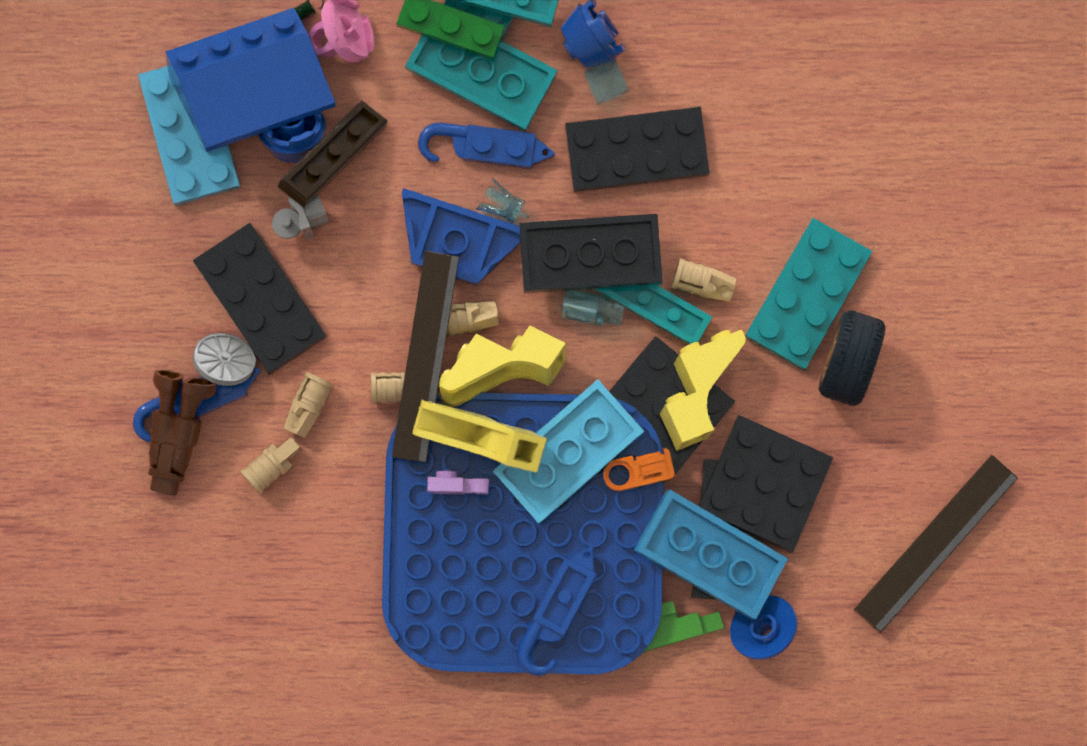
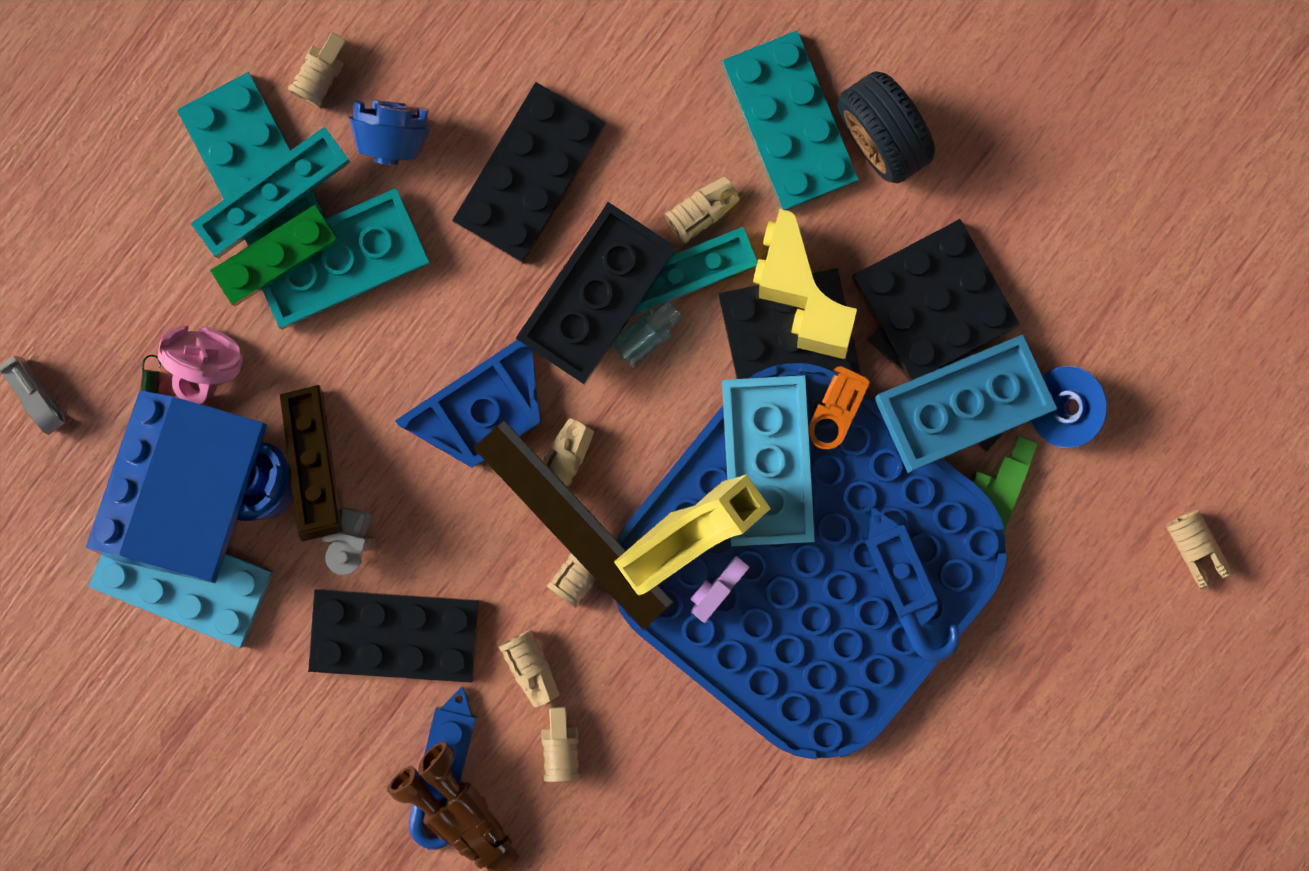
camera: 55 degrees left, 5 degrees up
(224, 359) = (426, 714): light grey wheel -> none
(486, 365) = (625, 472): light yellow arch -> none
(487, 145) = (415, 309): blue plate -> none
(510, 204) = (489, 334): clear light blue piece -> none
(606, 82) = (442, 151): clear light blue tile -> none
(935, 543) = (1111, 187): dark brown tile -> none

